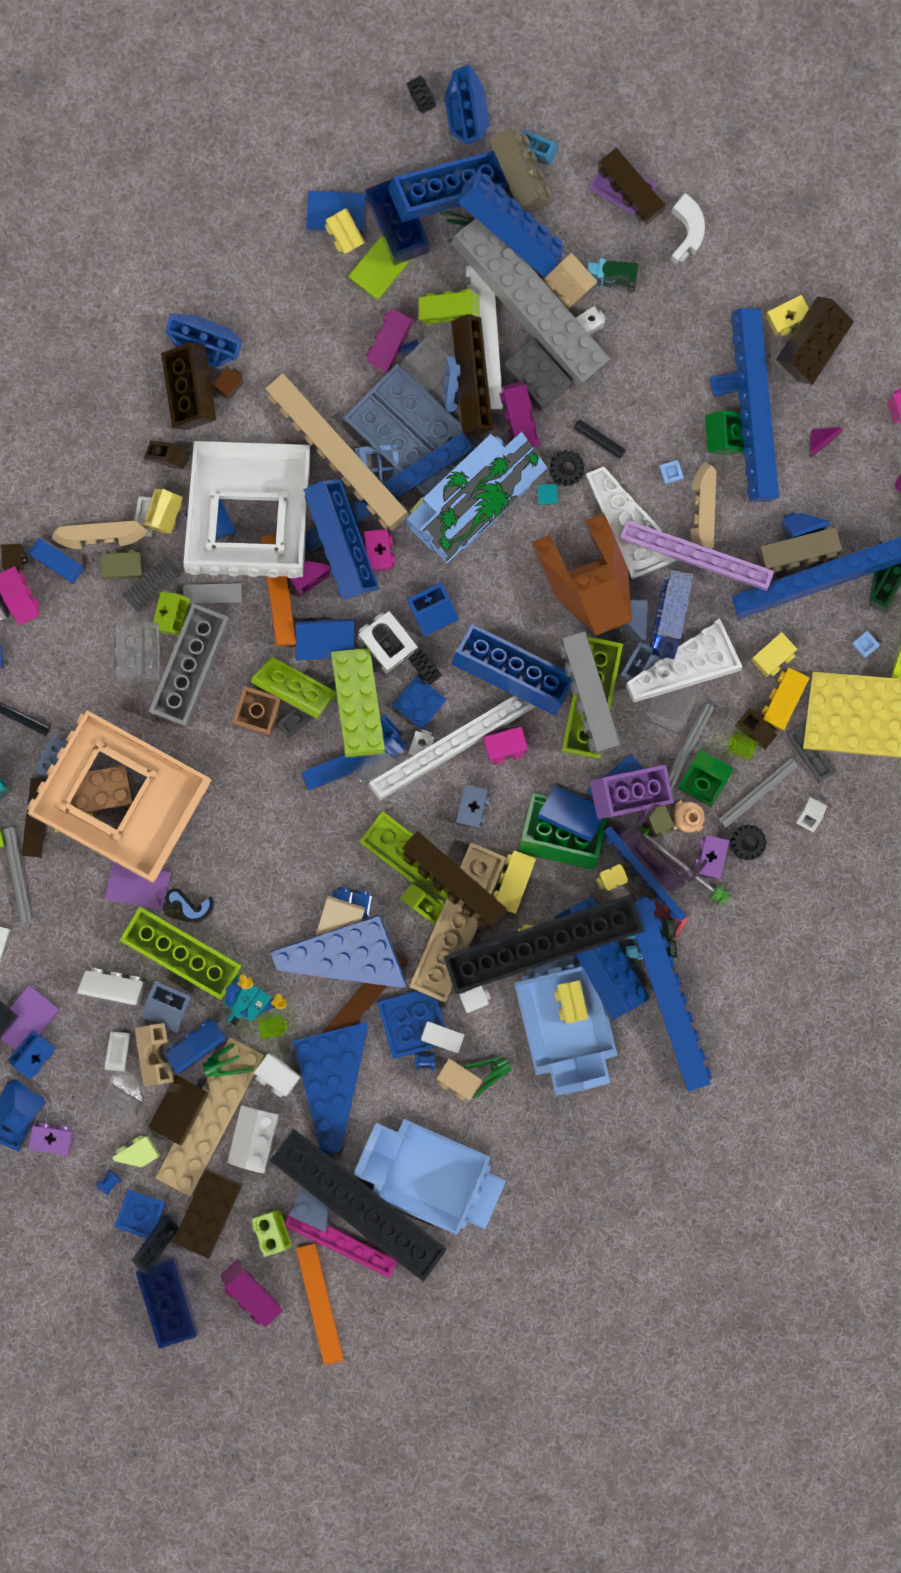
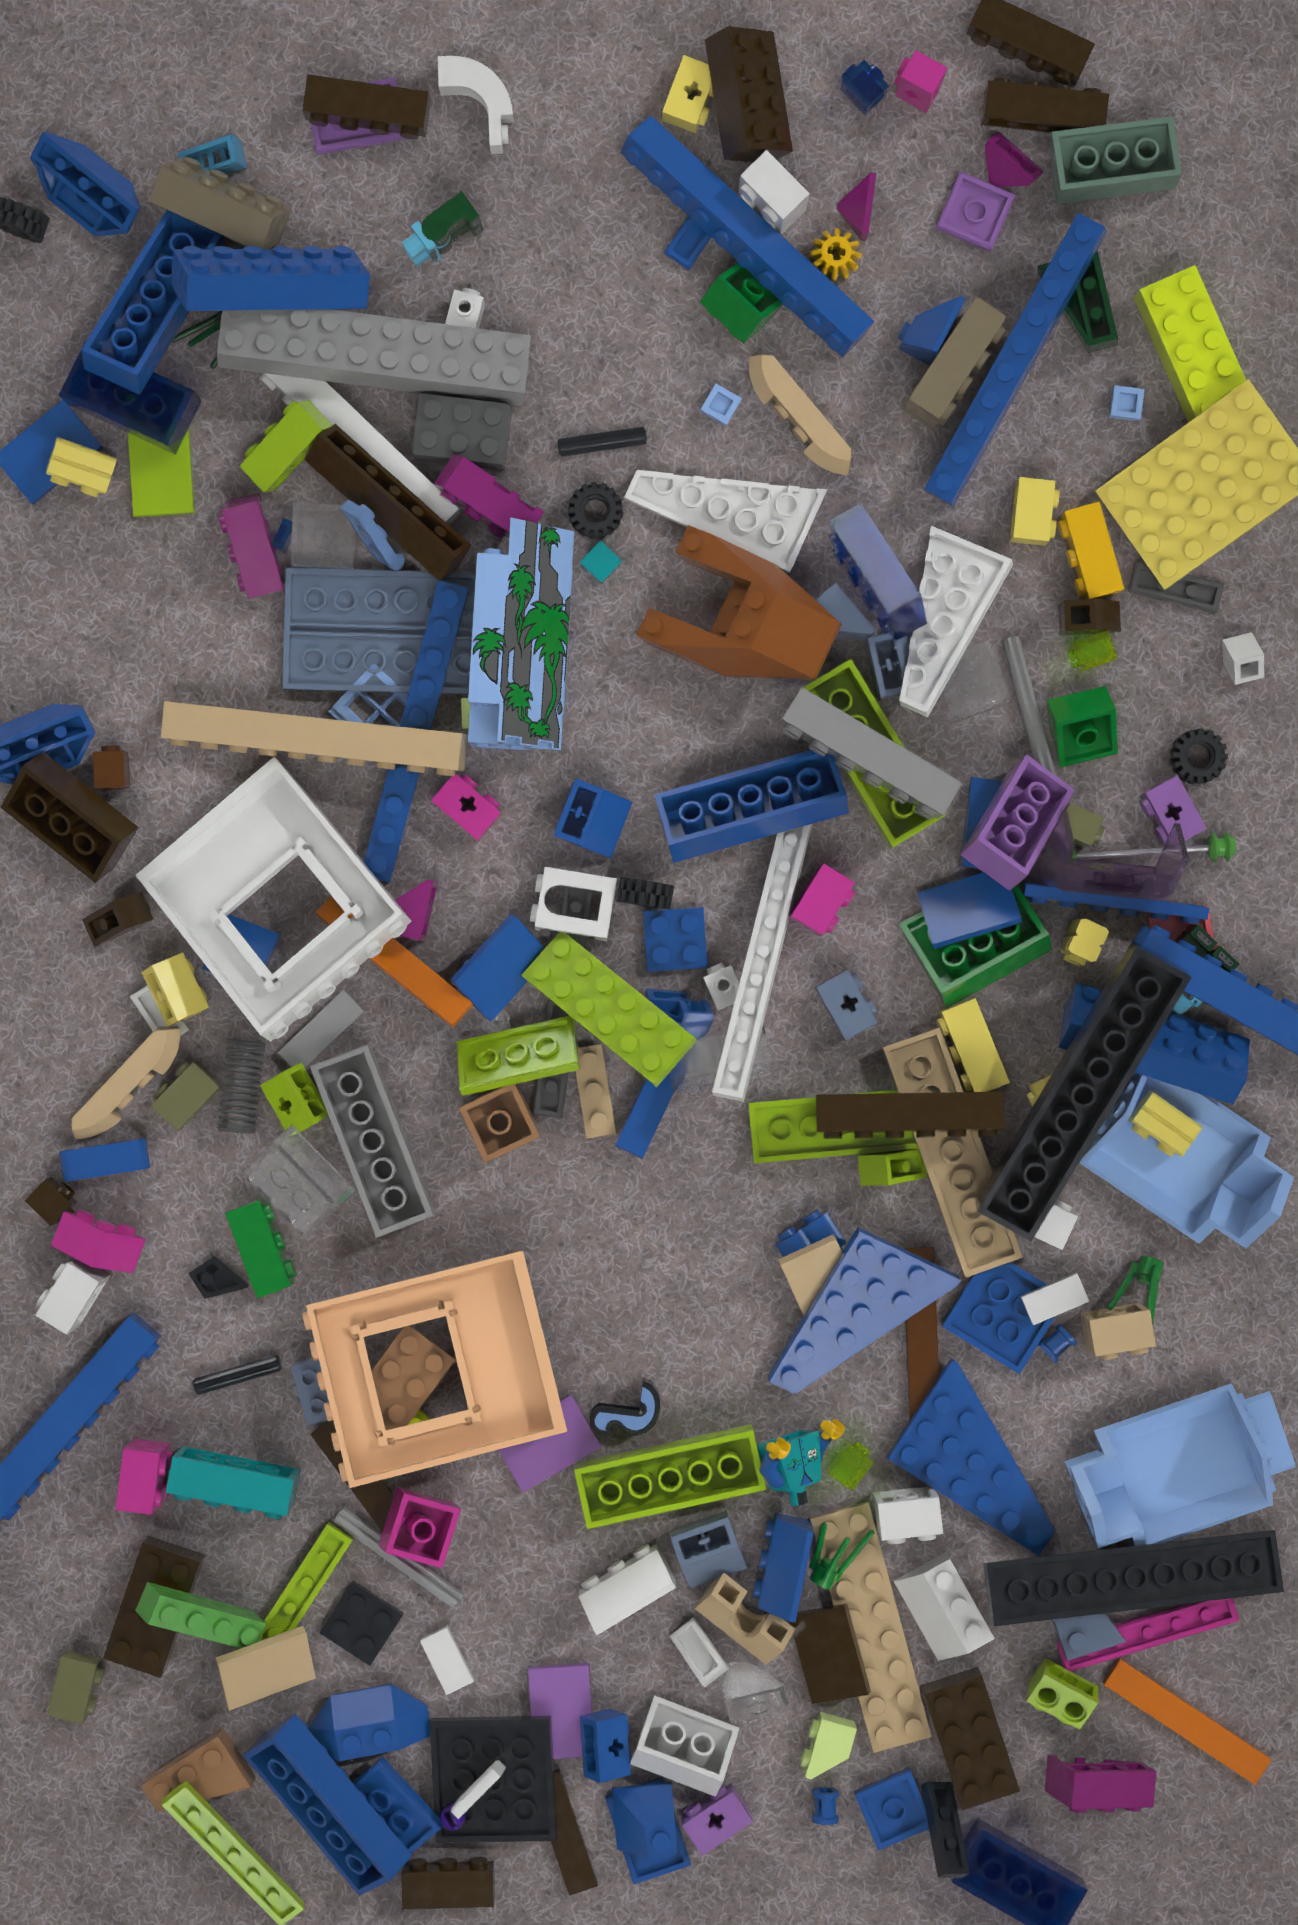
camera: 40 degrees left, 5 degrees up
(41, 868) = (419, 1527): none -> dark pink brick
(55, 664) = (216, 1278): none -> black piece
(68, 1090) = (685, 1746): none -> white slope
(90, 668) = (261, 1247): none -> green brick
(315, 739) = (594, 1092): none -> tan plate
(341, 539) = (414, 835): blue brick -> none
(570, 281) = (400, 285): tan brick -> none
(687, 816) = (1104, 791): light nougat piece -> none
(697, 555) = (843, 476): lavender plate -> none
(758, 792) = (1157, 688): light grey axle -> none
(782, 447) = (845, 250): none -> yellow gear
(784, 395) = (773, 192): none -> white brick
(875, 385) = (864, 86): none -> clear blue brick
(875, 491) = (975, 211): none -> medium lavender tile

